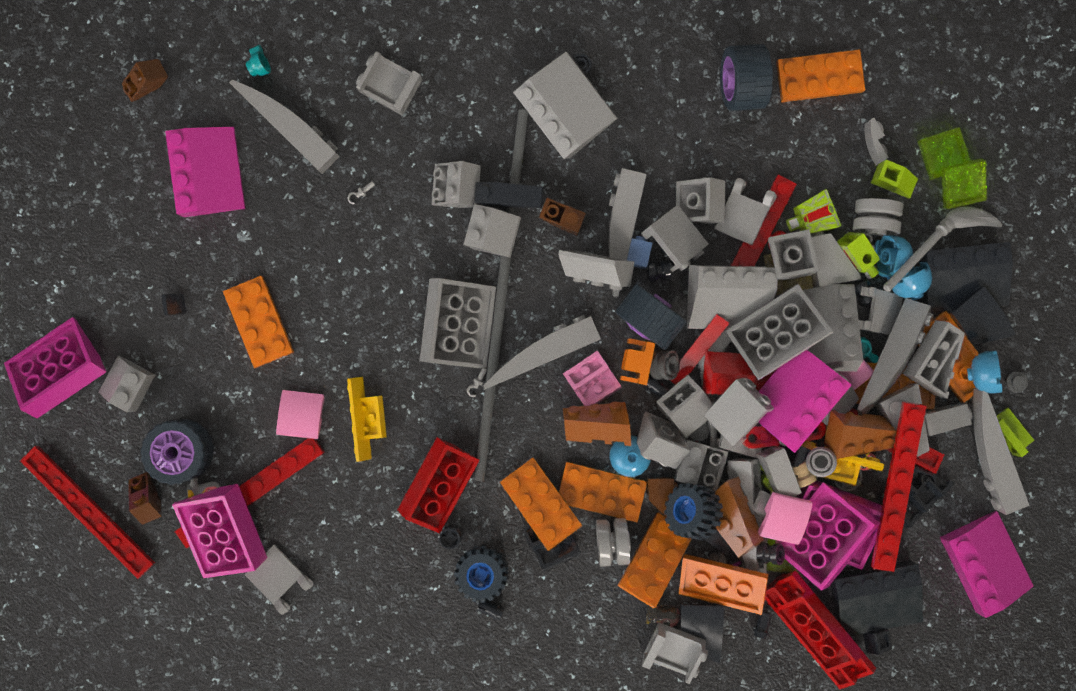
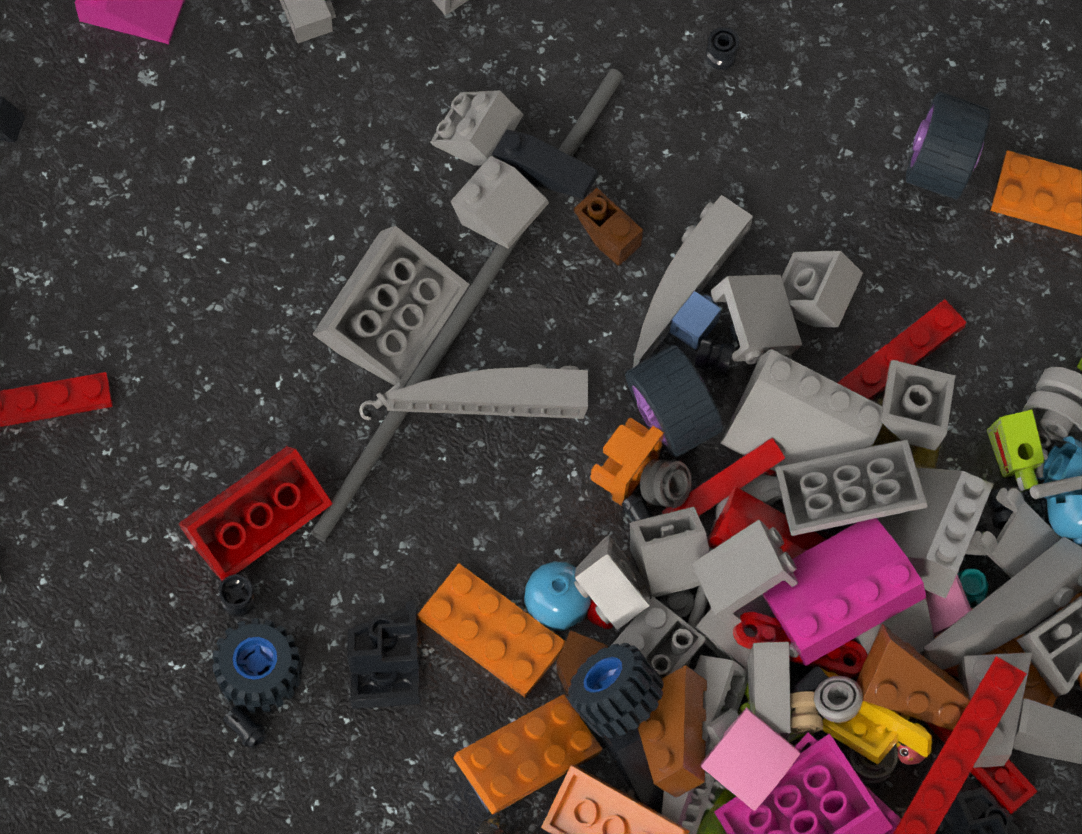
camera: 15 degrees right, 20 degrees down
(258, 321) = (110, 193): orange plate -> none
(300, 414) = (105, 336): bright pink slope -> none
(361, 191) = (340, 85): light grey hand -> none
(366, 417) = (197, 379): yellow bracket -> none
(541, 504) = (394, 602): orange plate -> none
(565, 105) = (677, 85): light grey slope -> none
(592, 380) = (550, 467): bright pink slope -> none
(597, 269) = (625, 303): light grey slope -> none
(597, 422) = (529, 519): dark orange wedge -> none
(615, 541) = (471, 696): light grey wheel -> none
(743, 215) = (872, 331): light grey flag -> none
(770, 553) = (707, 812): black wheel -> none
(815, 215) = (978, 373): lime torso -> none
(832, 262) = (973, 442): light grey slope -> none

